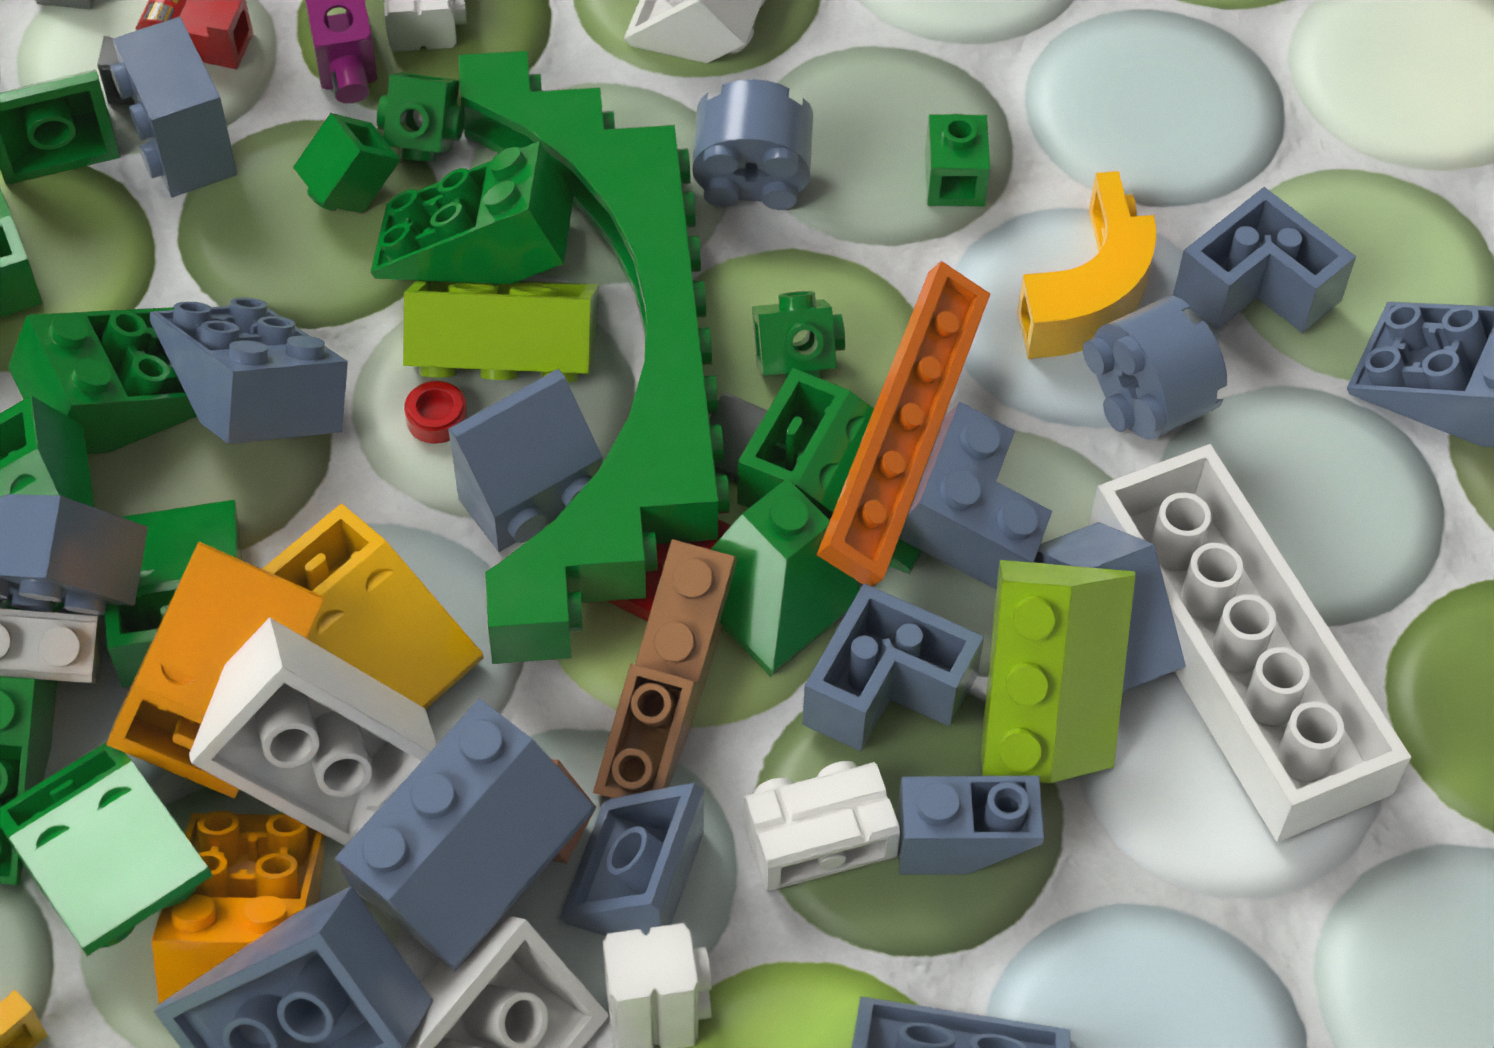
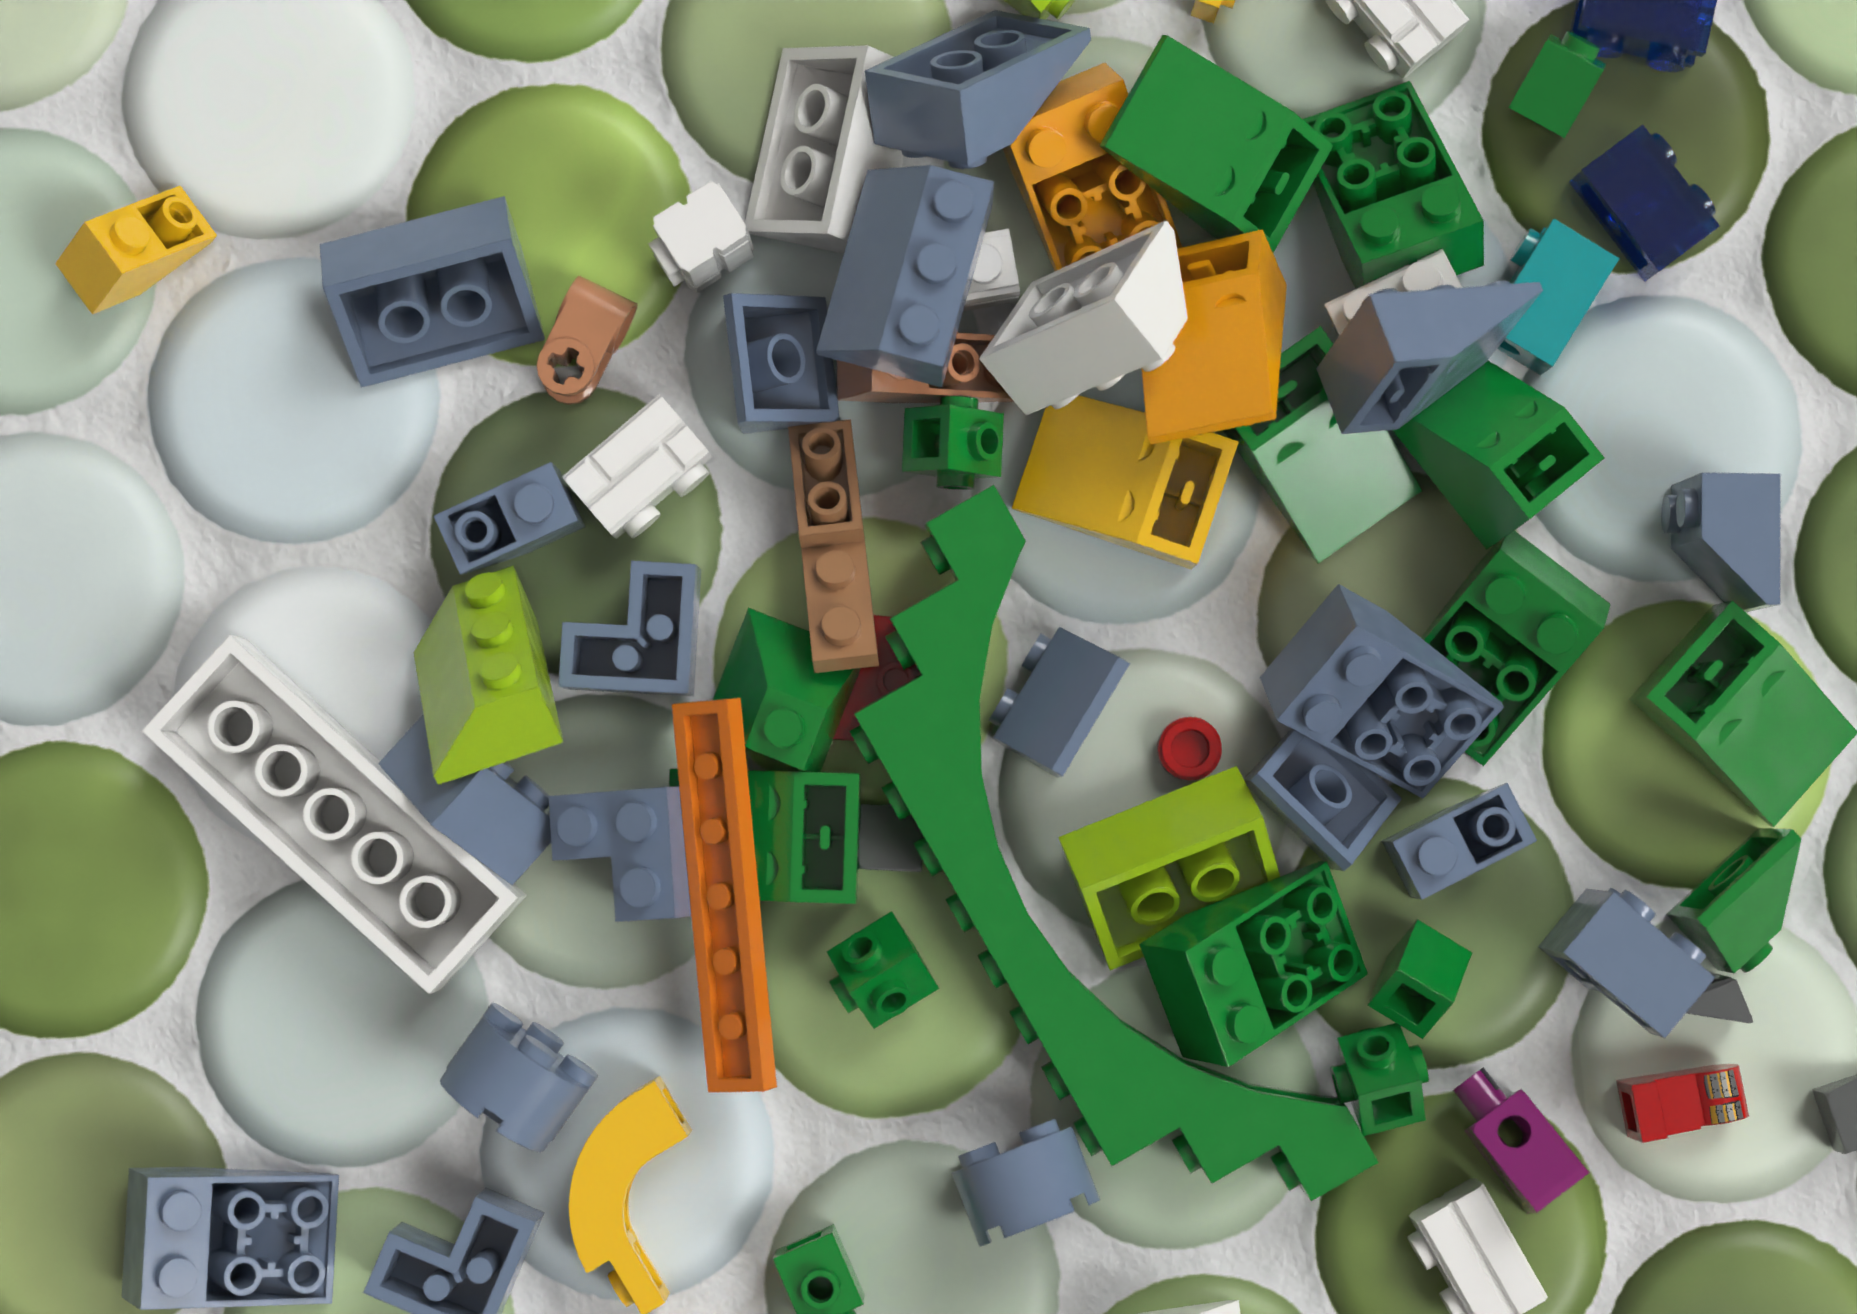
camera: 155 degrees right, 30 degrees up
(255, 243) = (1459, 841): none -> sand blue slope
(351, 315) = (1322, 797): none -> sand blue slope
(516, 696) = (953, 442): none -> green brick
(814, 973) = (586, 329): none -> nougat piece

